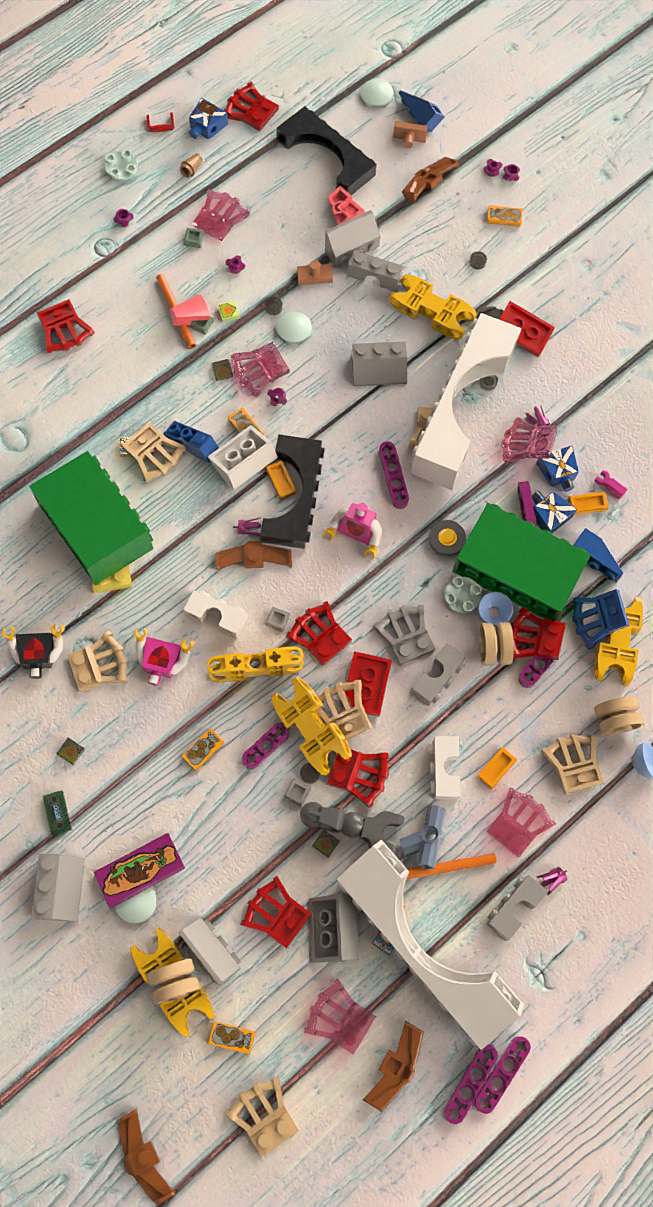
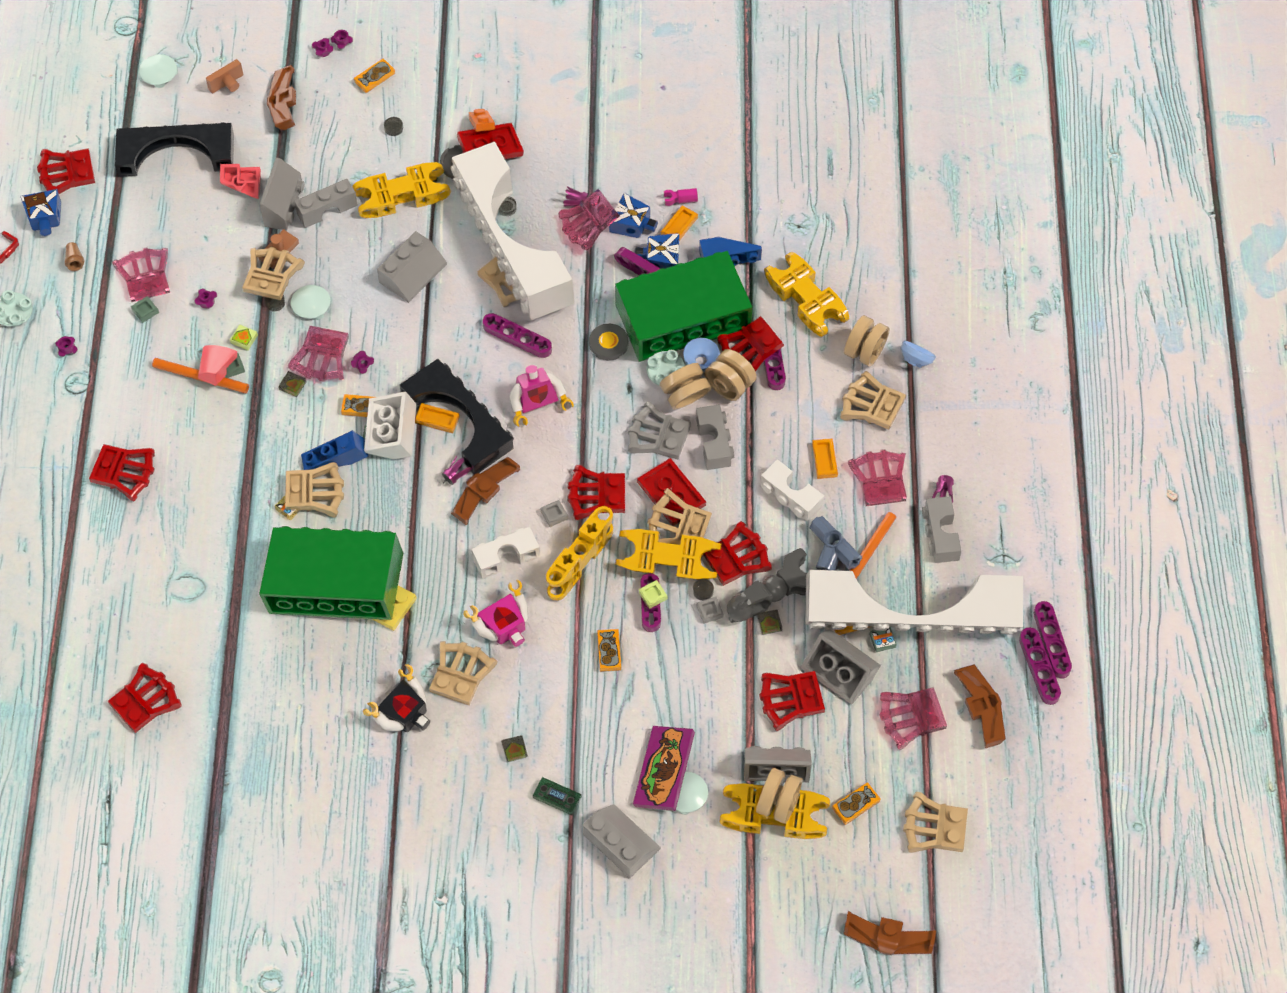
camera: 45 degrees left, 10 degrees down
(270, 742) = (653, 594): none -> yellowish green tile
(280, 291) = (267, 282): none -> tan plate
(422, 110) = (219, 50): blue slope -> none
(455, 621) = (685, 386): none -> tan wheel
(536, 307) = (481, 120): none -> orange plate
(610, 612) = (784, 278): blue plate -> none

